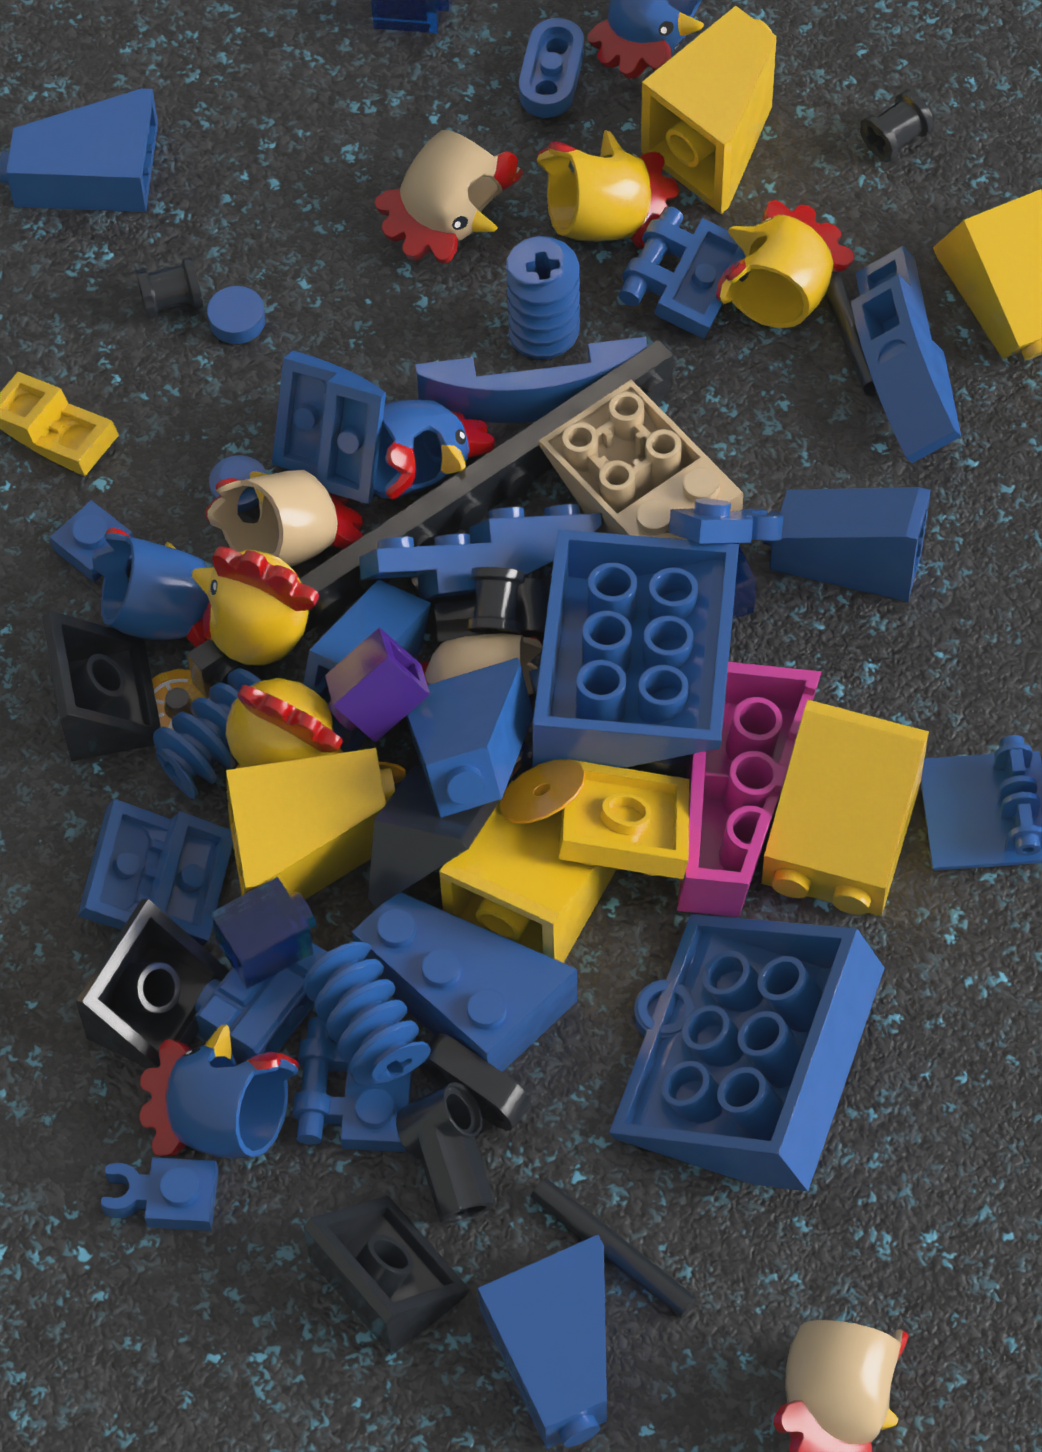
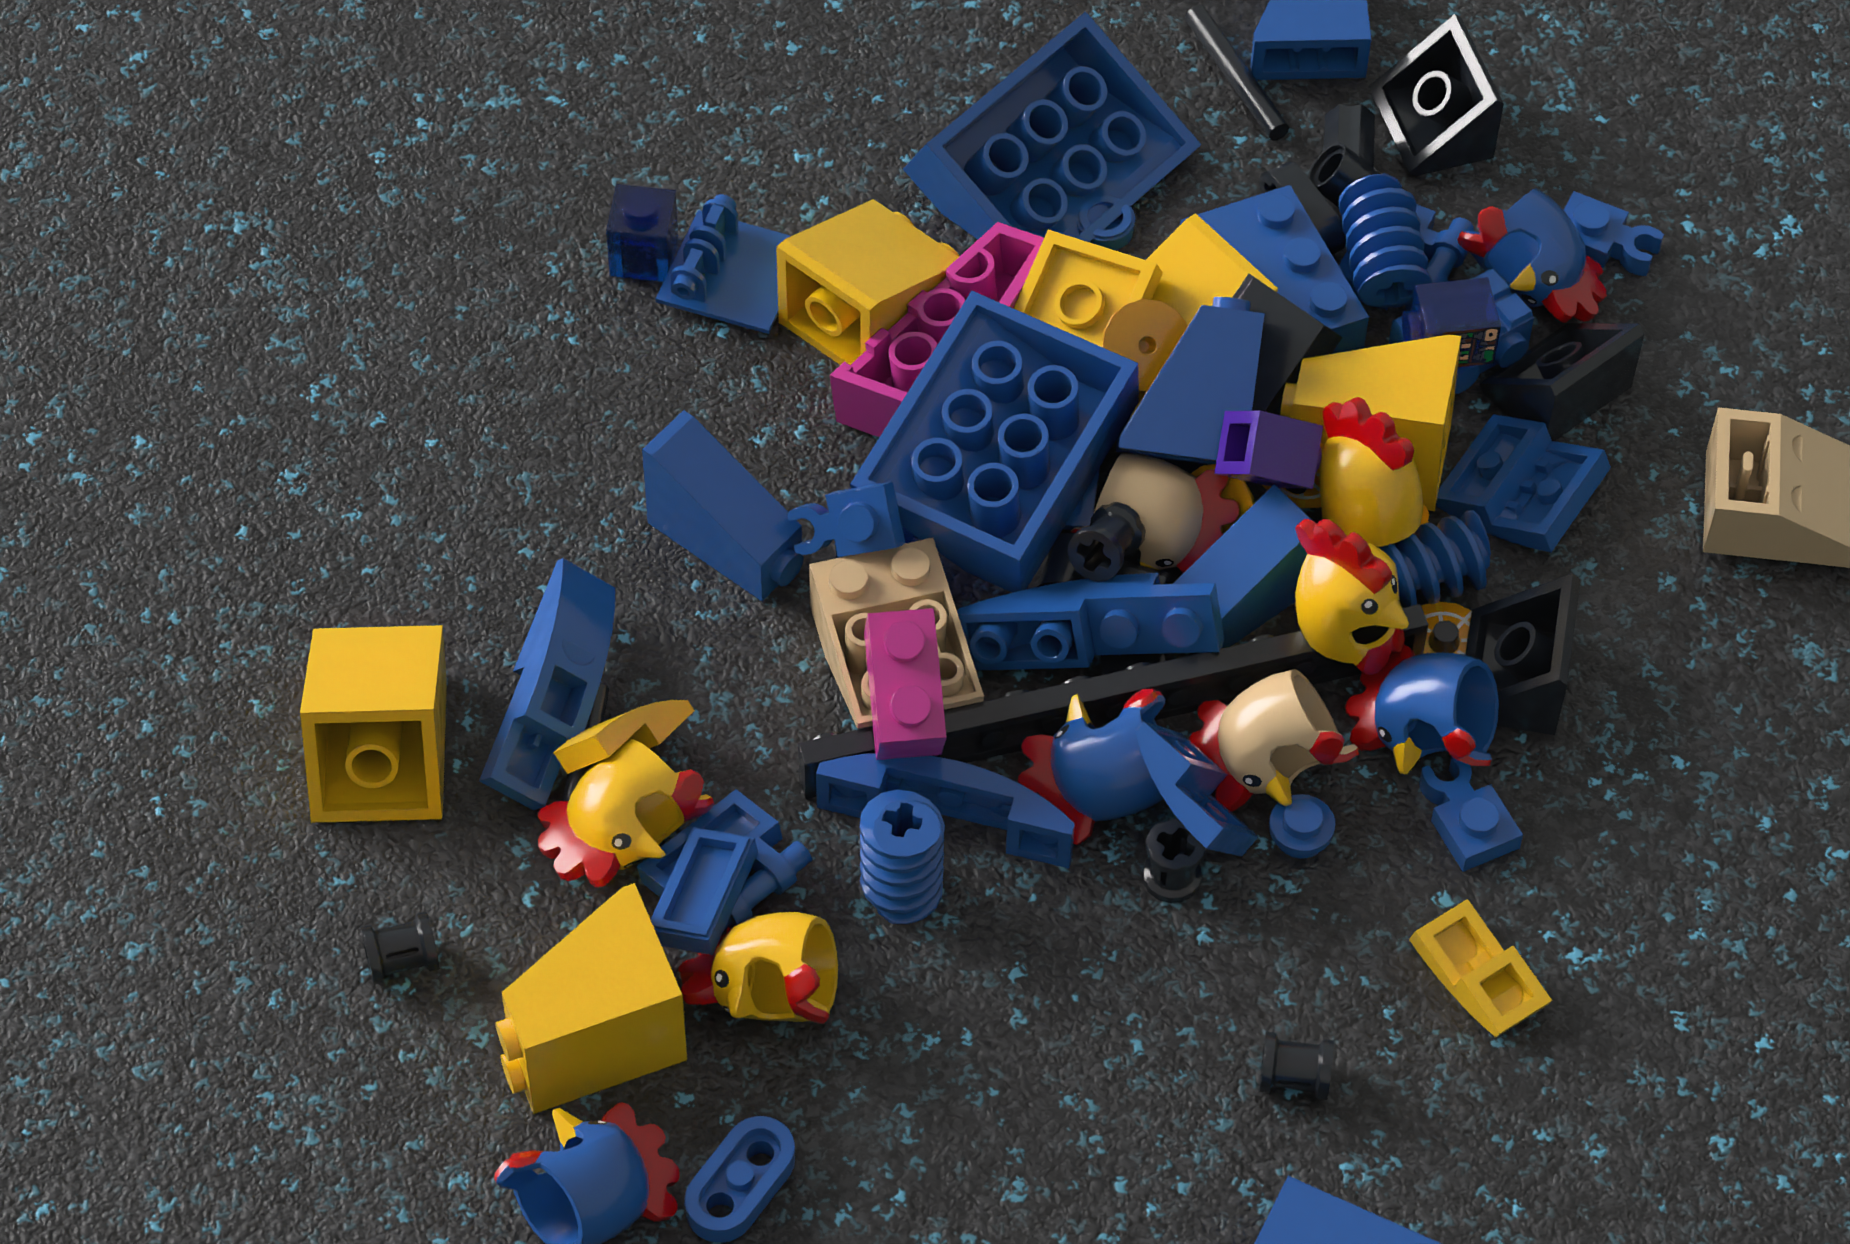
camera: 160 degrees left, 5 degrees down
(236, 314) = (1230, 1021): blue tile -> none
(445, 196) = (951, 1041): tan piece -> none
(598, 377) = (905, 684): none -> dark pink brick
(684, 217) = (703, 890): none -> blue tile
(816, 331) = (645, 724): none -> yellow slope

